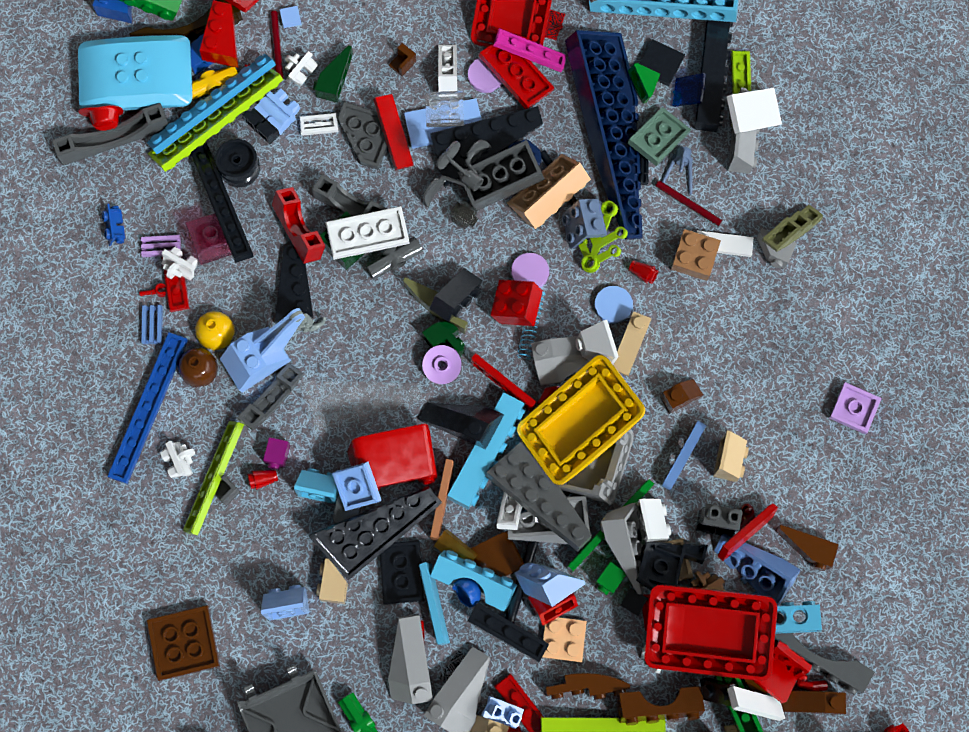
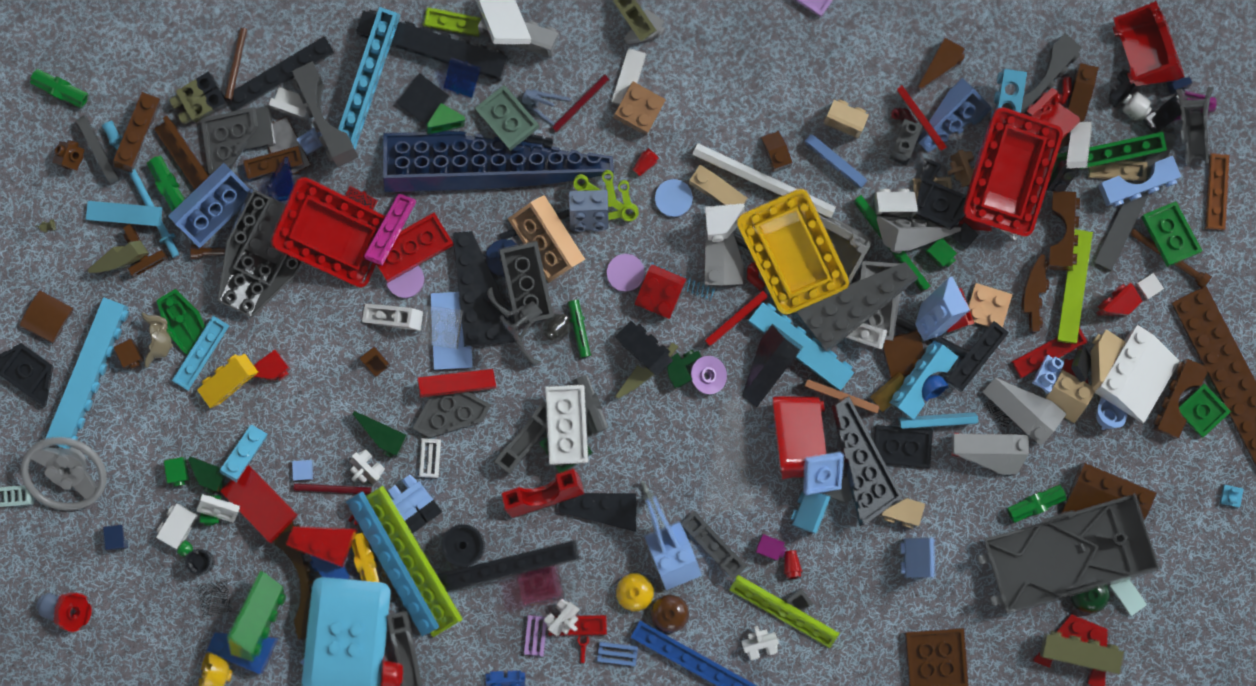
camera: 80 degrees left, 10 degrees up
(474, 233) = (575, 306): none -> green pin
(649, 386) = (756, 177): none -> white tile

